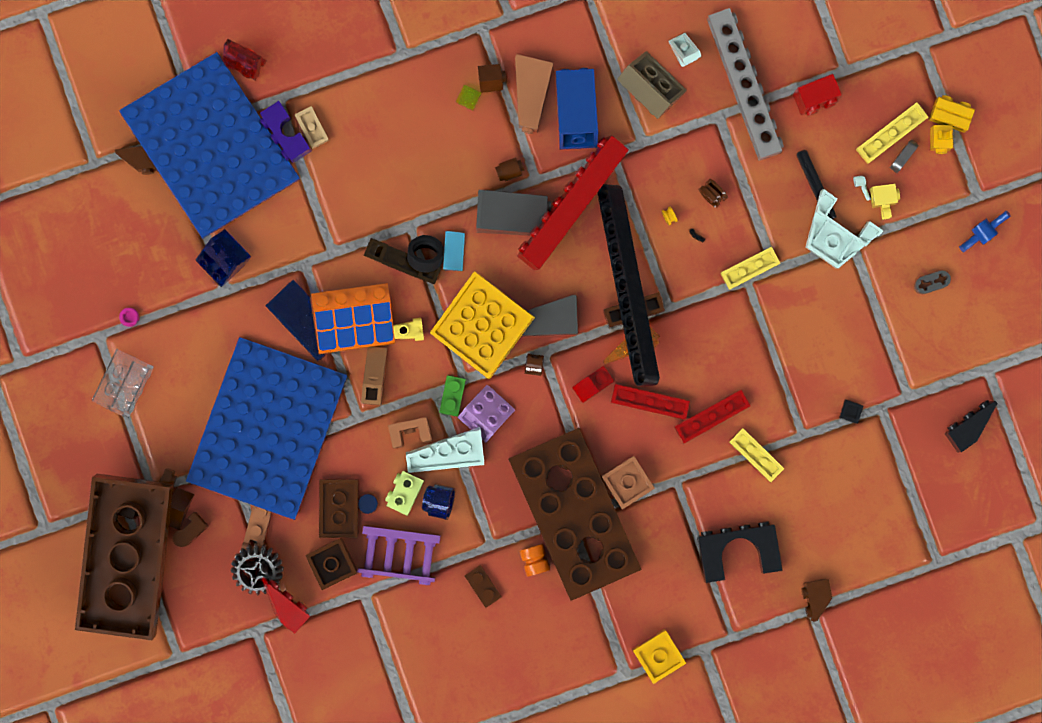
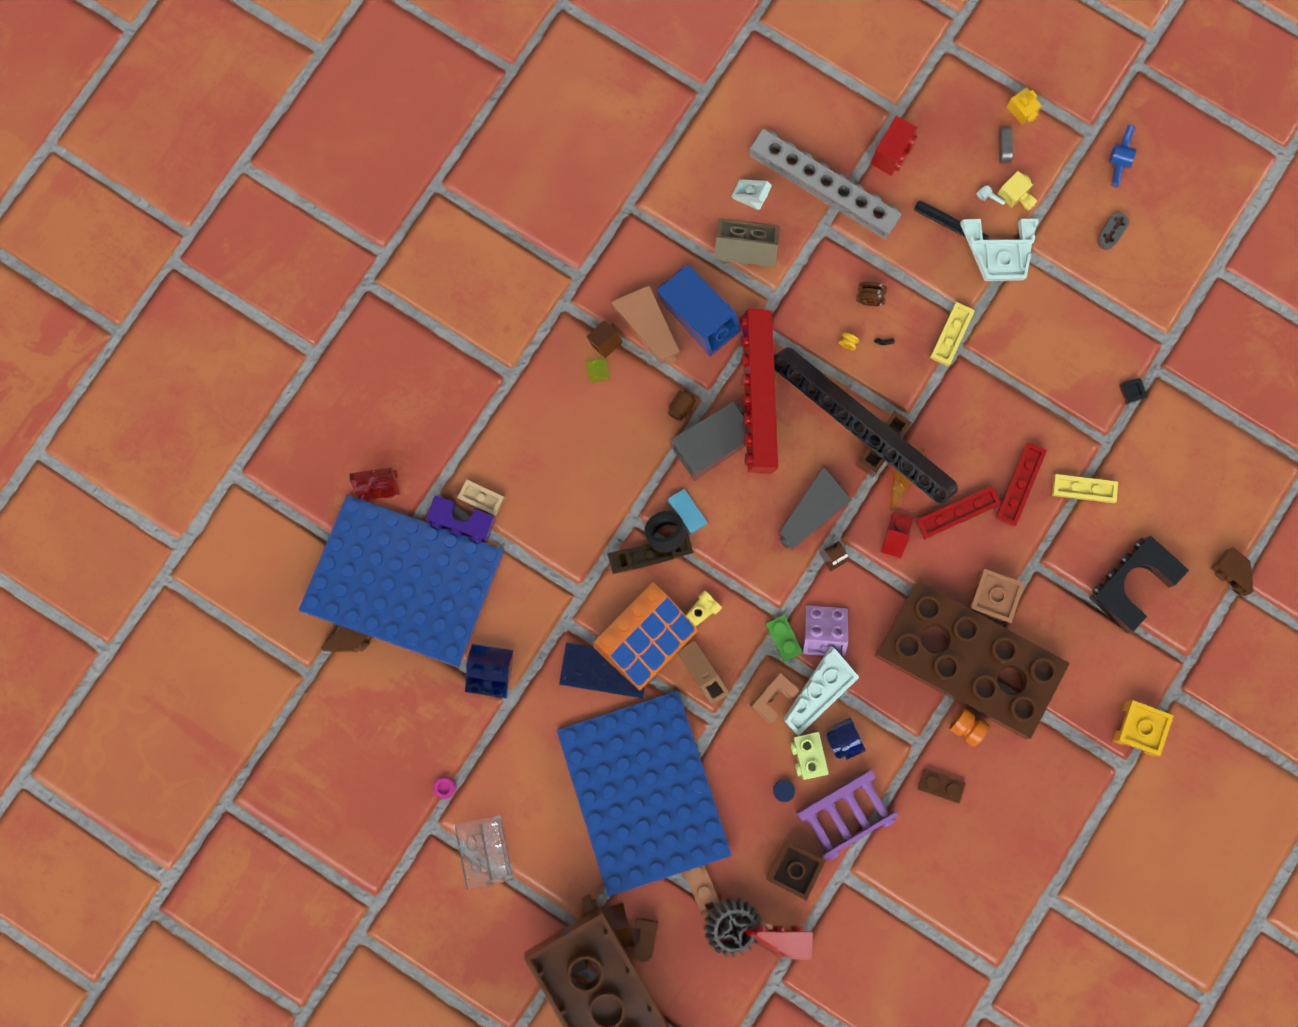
camera: 35 degrees left, 5 degrees down
(338, 508) = (762, 815): reddish brown plate -> none
(482, 325) = (763, 555): yellow plate -> none
(892, 133) = (980, 133): light yellow plate -> none
(952, 113) = (1013, 80): yellow brick -> none
(970, 429) = (1245, 327): black slope -> none

